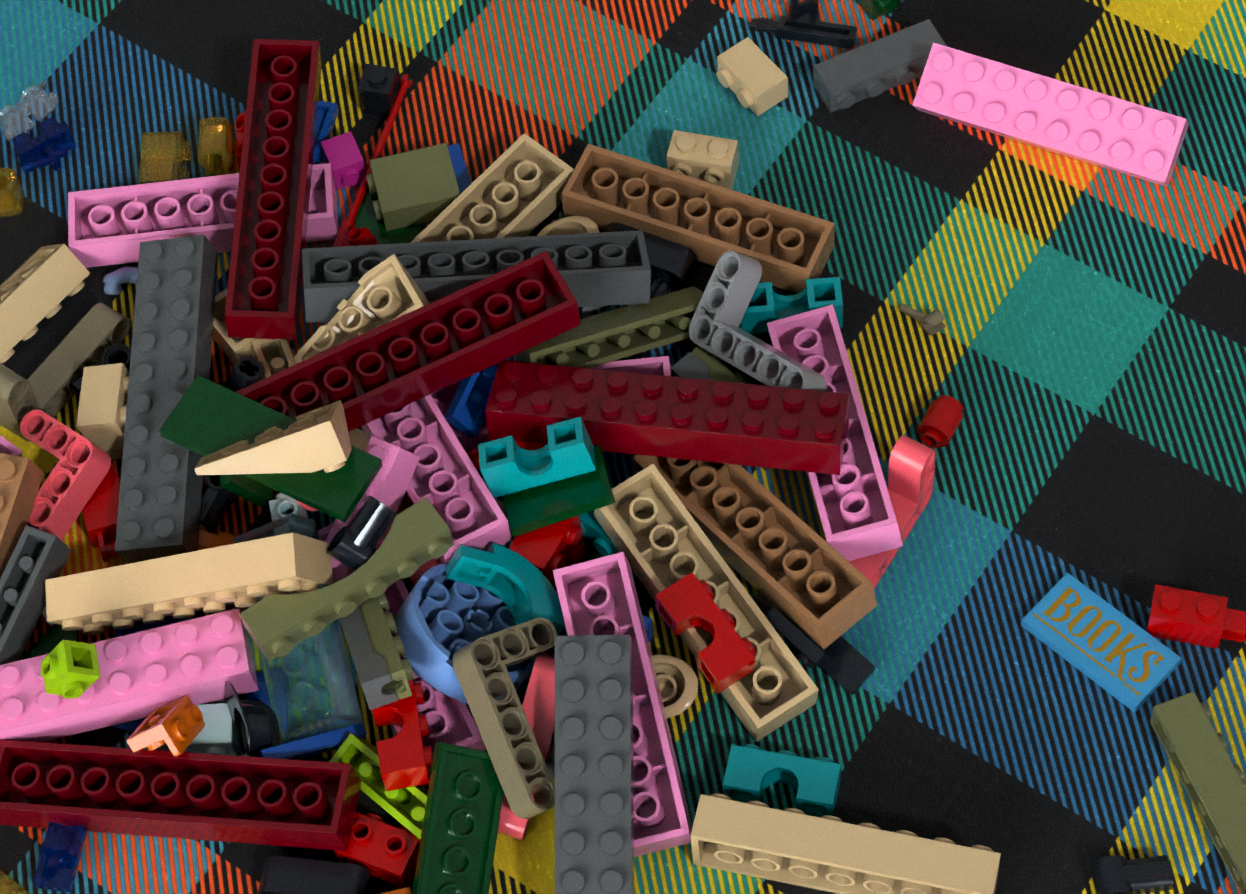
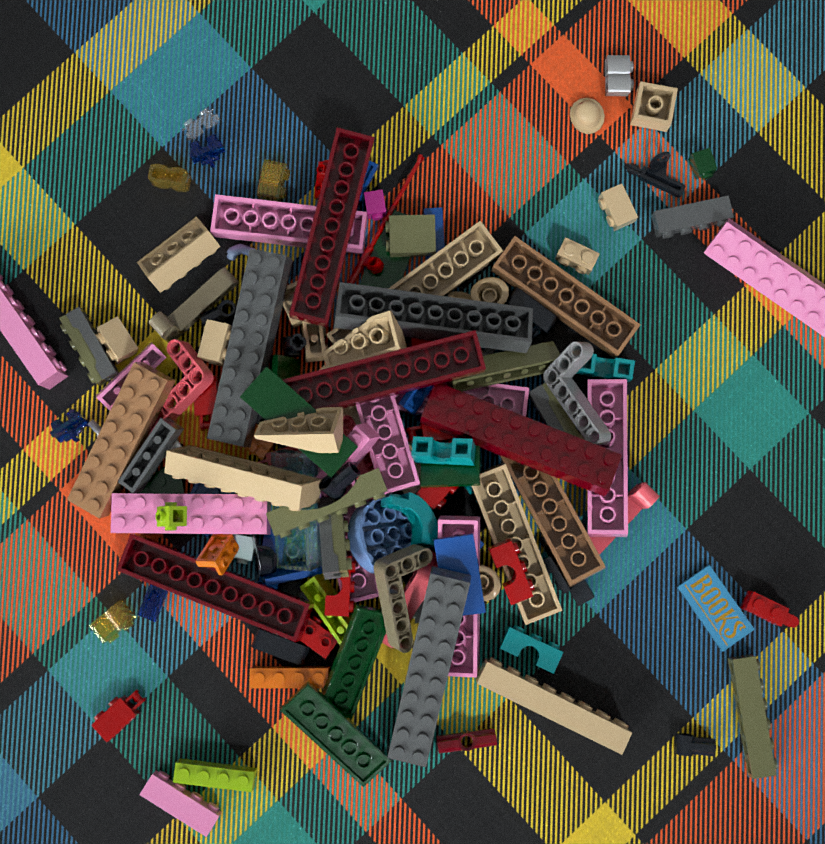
camera: 10 degrees right, 25 degrees up
(216, 147) = (304, 184): clear yellow brick -> none
(378, 89) = (403, 161): black brick -> none
(608, 610) = (460, 555): none -> blue tile
(930, 323) = (676, 392): dark tan hand -> none
(940, 421) = (666, 458): red brick -> none

